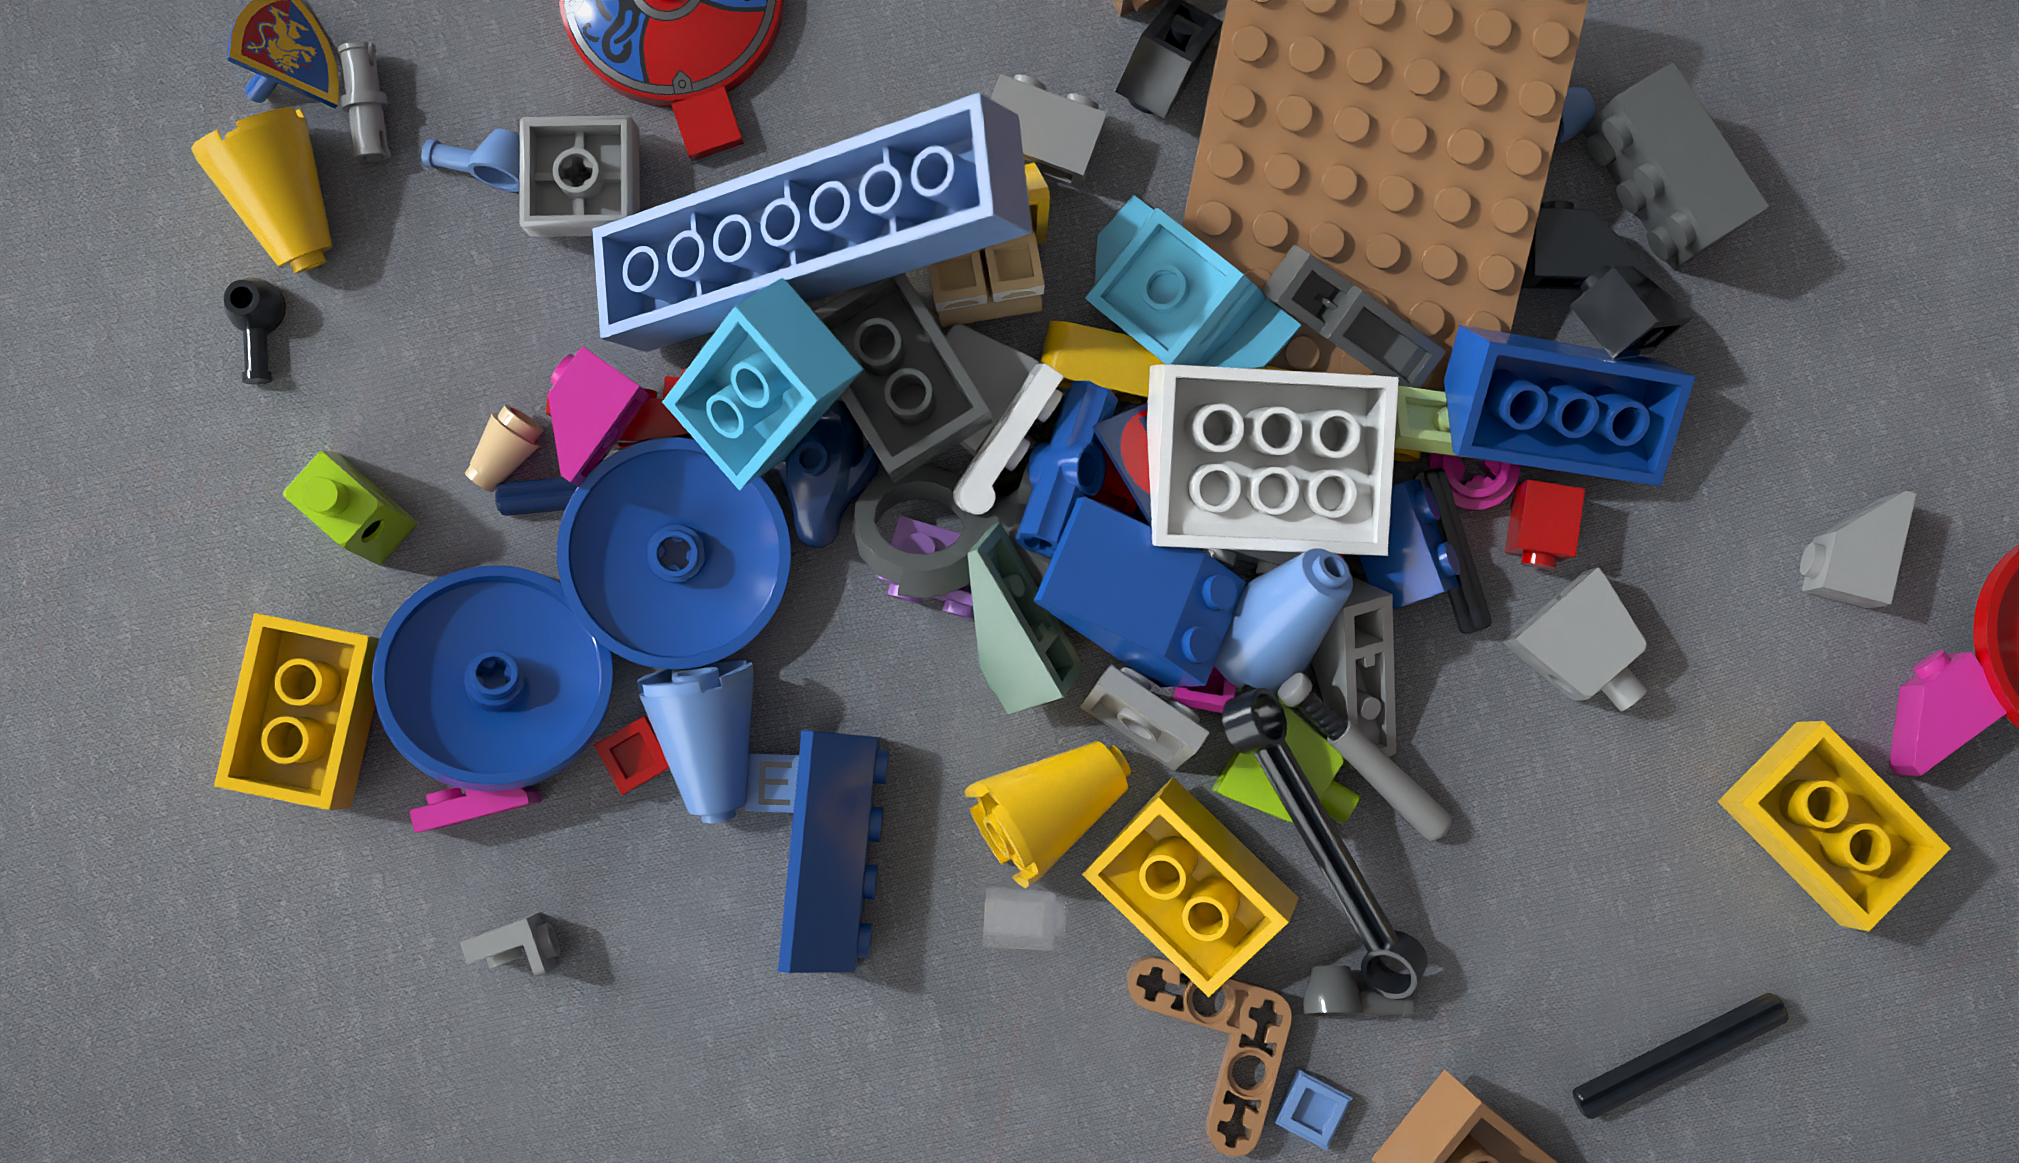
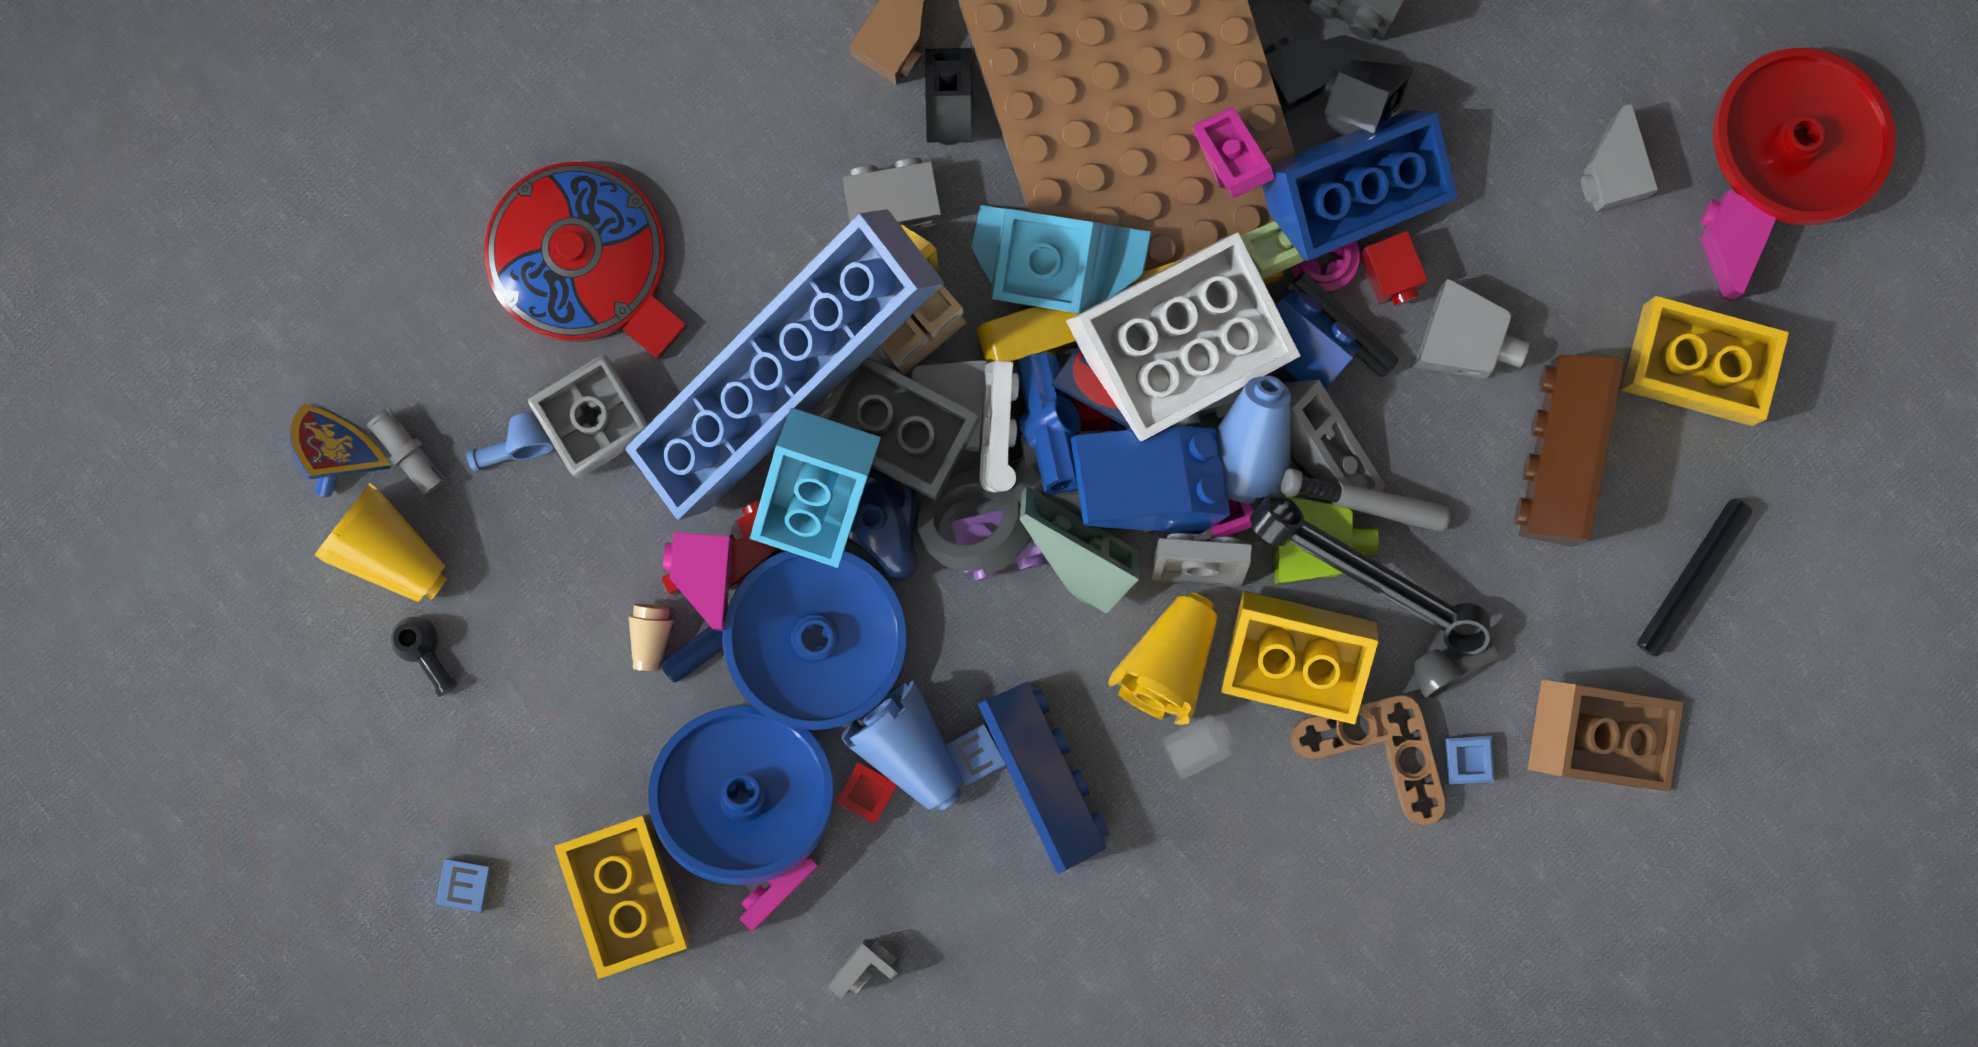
camera: 30 degrees left, 0 degrees up
(147, 599) = (463, 885): none -> medium blue tile
(346, 503) = (571, 738): lime torso -> none
(1352, 319) = (1182, 208): dark grey slope -> none
(1442, 289) = (1232, 153): none -> dark pink slope
(1626, 833) = (1569, 449): none -> reddish brown slope

